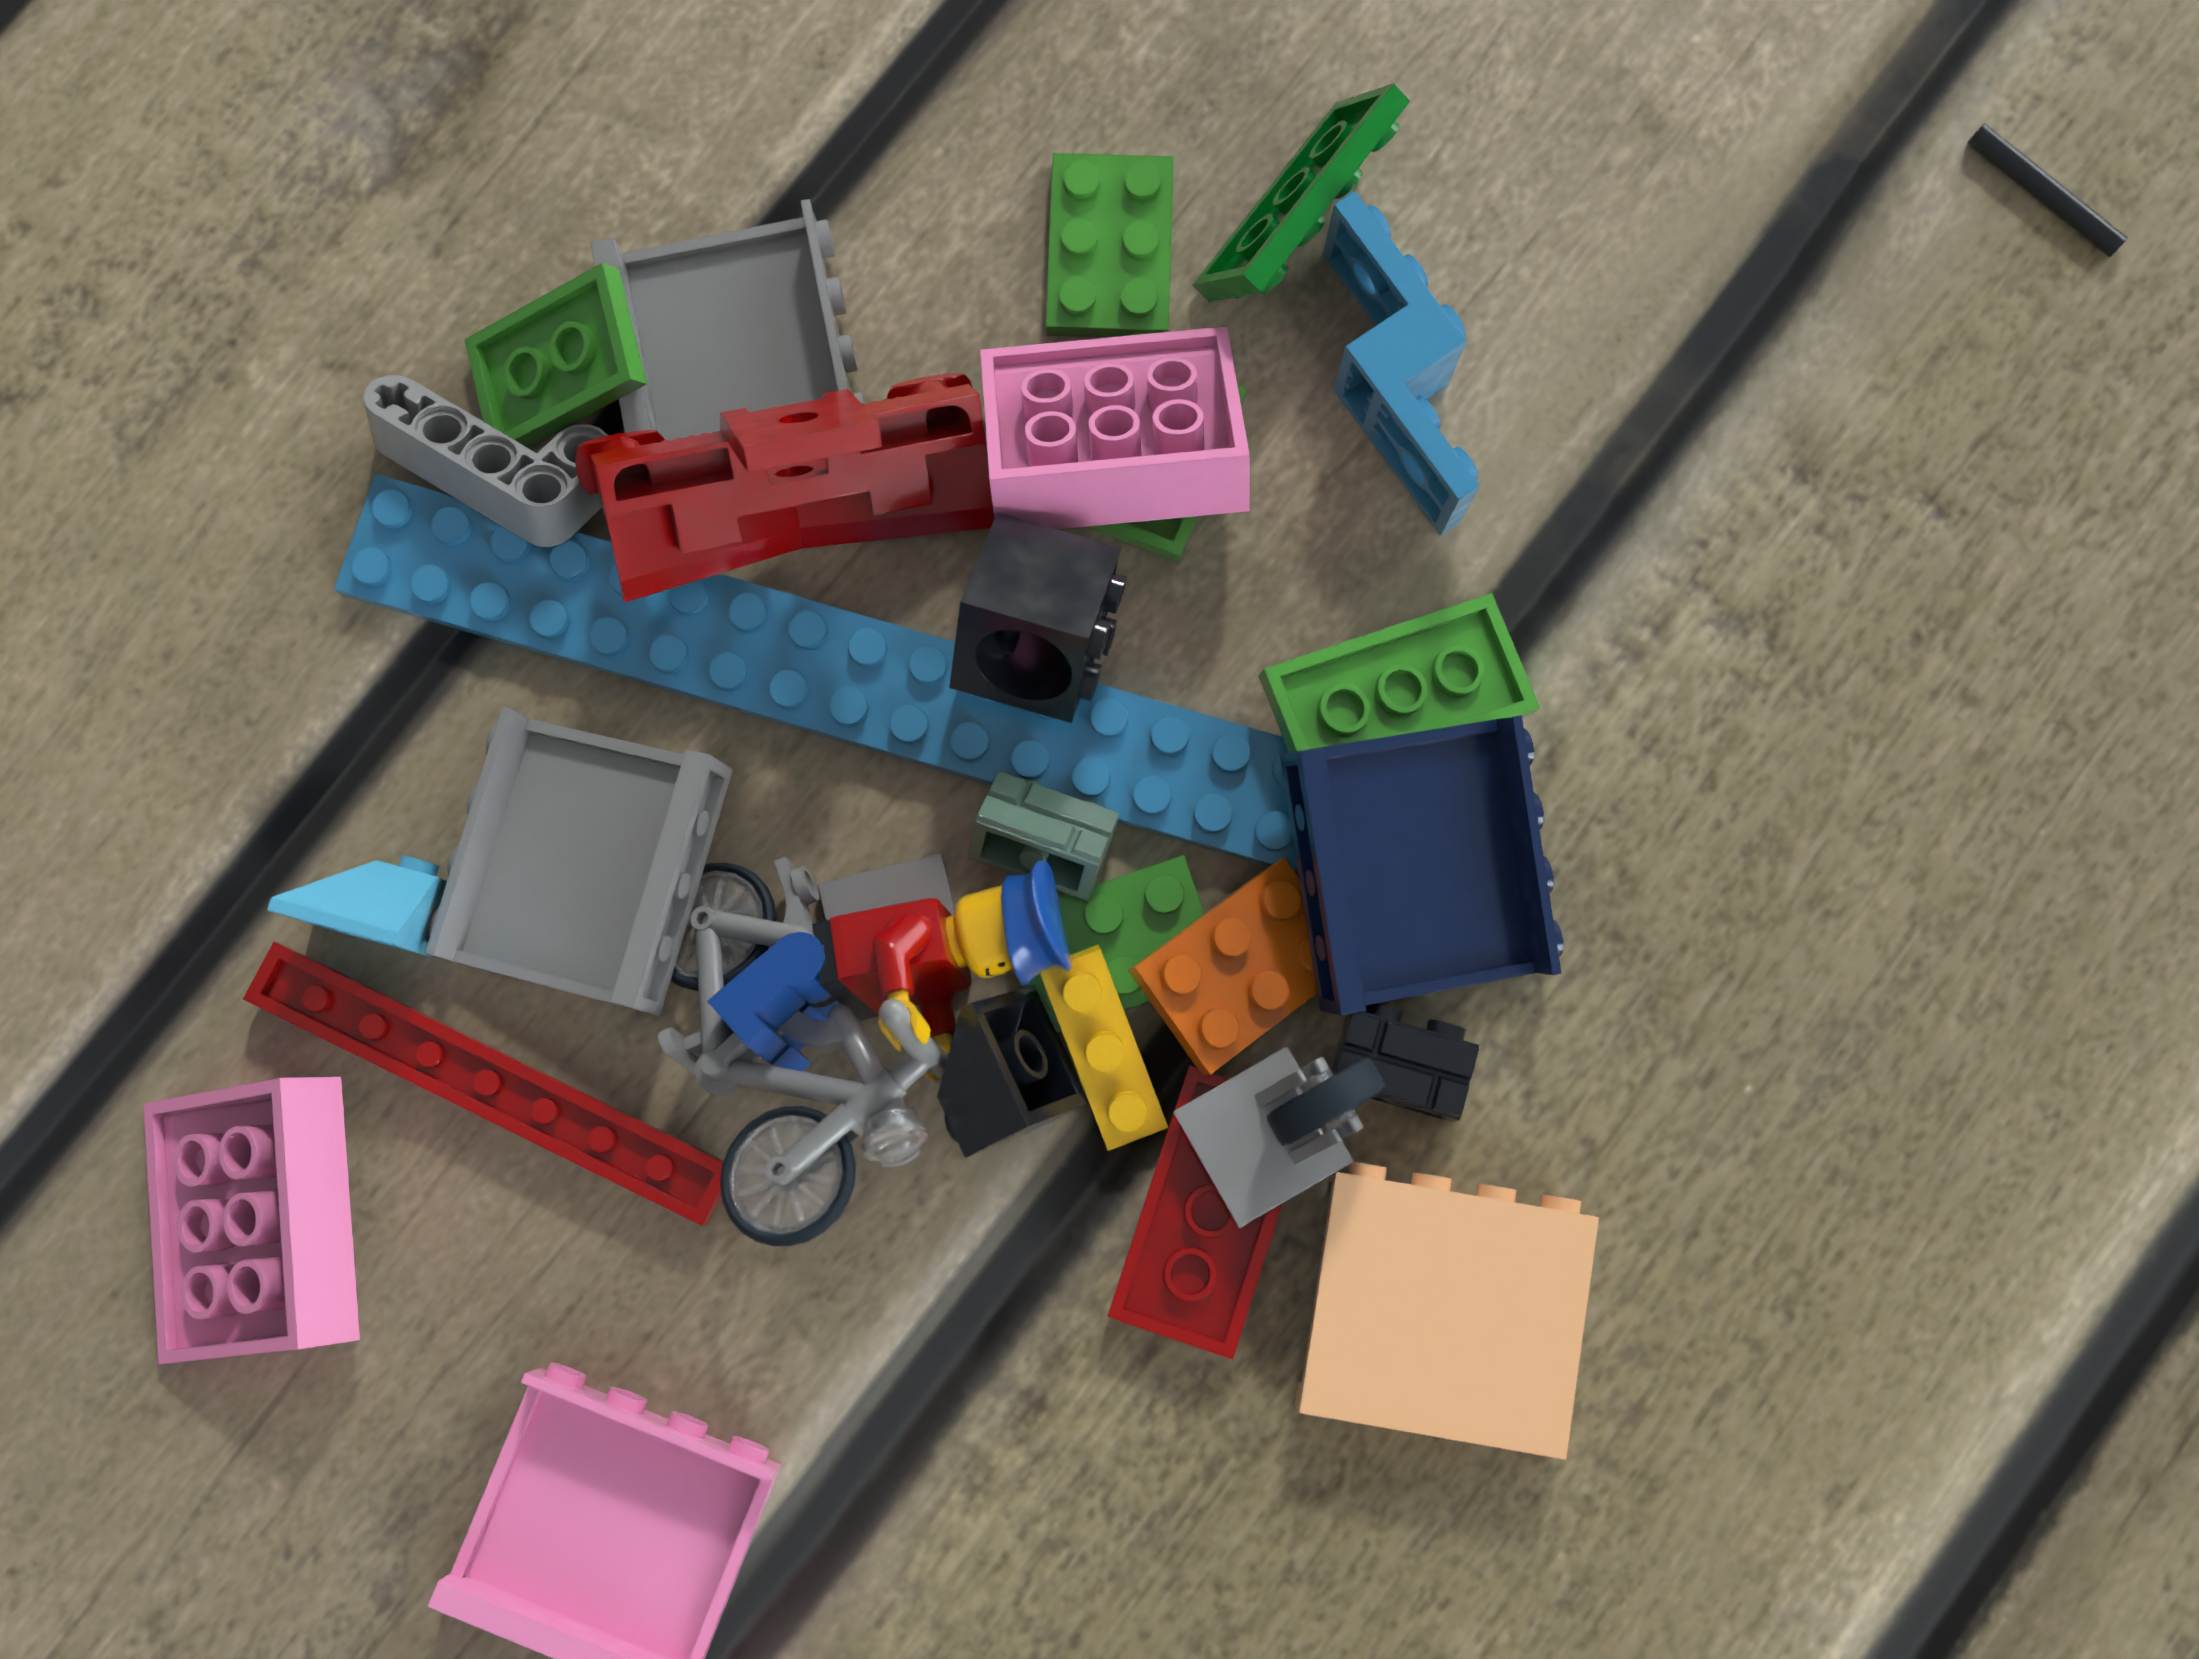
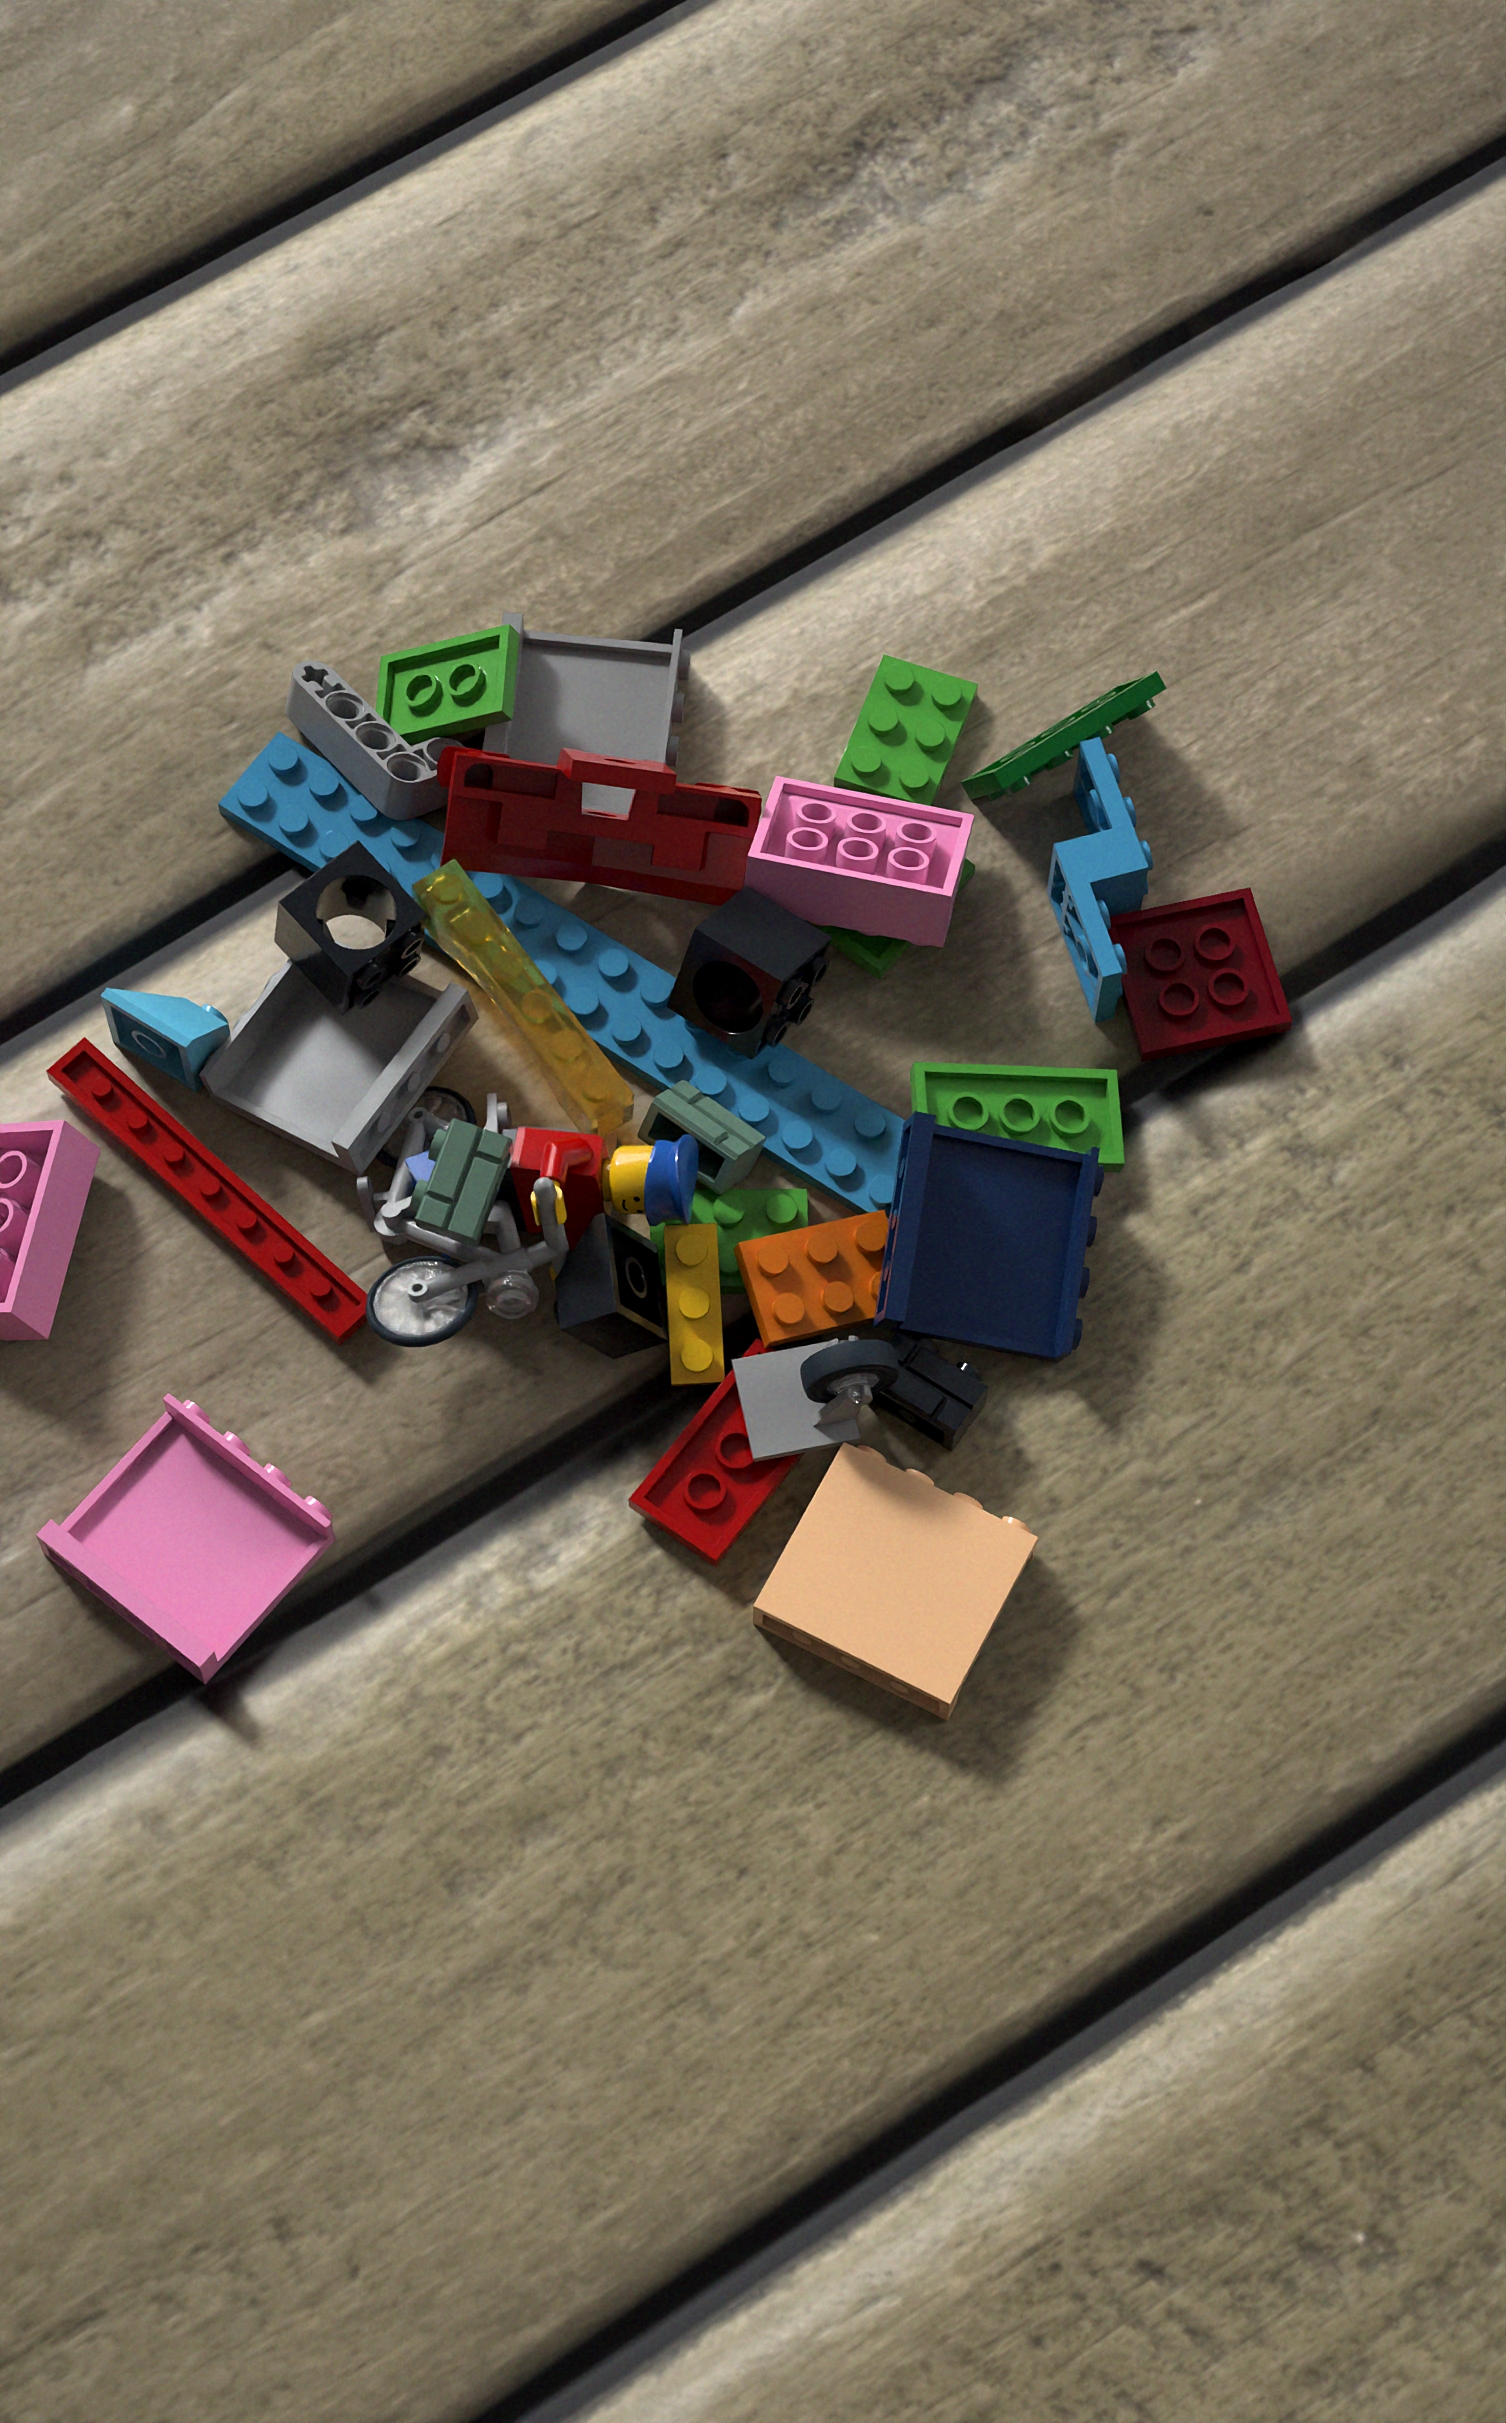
camera: 15 degrees right, 15 degrees down
(530, 664) = (359, 887): none -> black brick
(776, 735) = (565, 1053): none -> clear yellow arch
(788, 1027) = (462, 1182): none -> sand green brick
(1548, 441) = (1198, 975): none -> dark red plate

